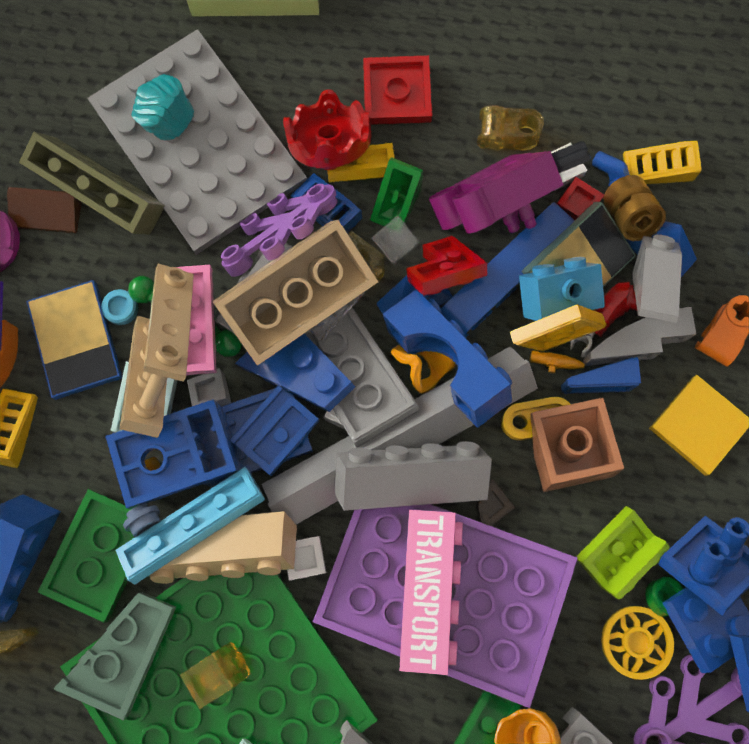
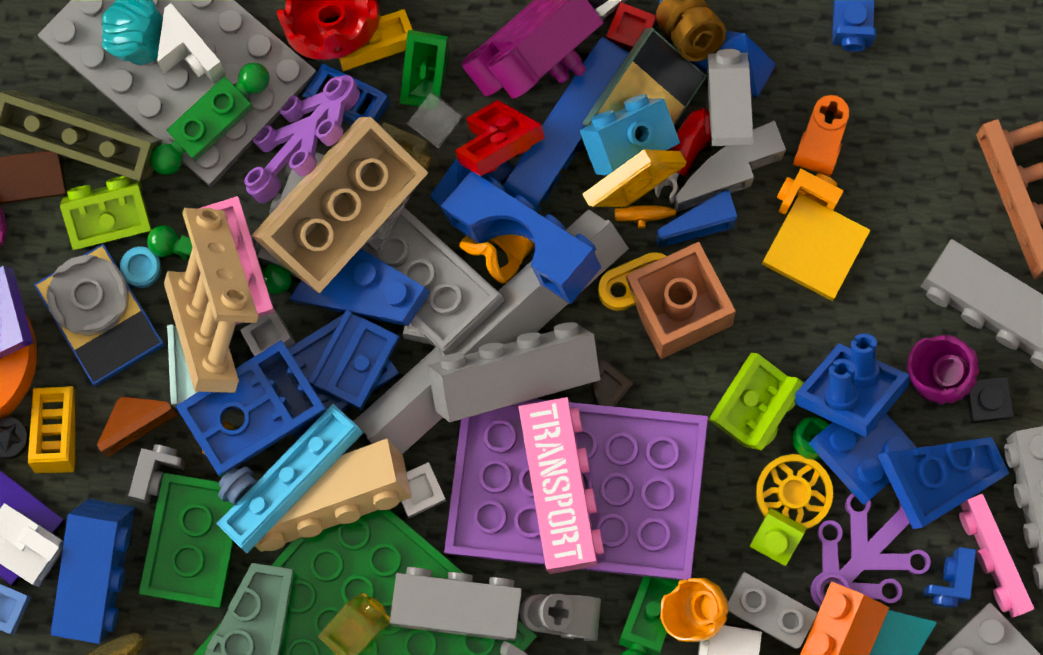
camera: 15 degrees left, 0 degrees up
(66, 320) = (88, 295): none -> light grey tile
(72, 437) = (131, 421): none -> dark orange slope
(75, 486) = (147, 475): none -> light grey bracket
(100, 255) = (105, 212): none -> lime bracket
(196, 127) = (181, 42): none -> white slope
(206, 195) = (210, 118): none -> green plate
(310, 678) = (456, 604): none -> light grey brick
(404, 708) = (562, 615): none -> light grey piece
(615, 681) = (778, 537): none -> lime plate
(712, 372) = (818, 188): none -> light orange bracket

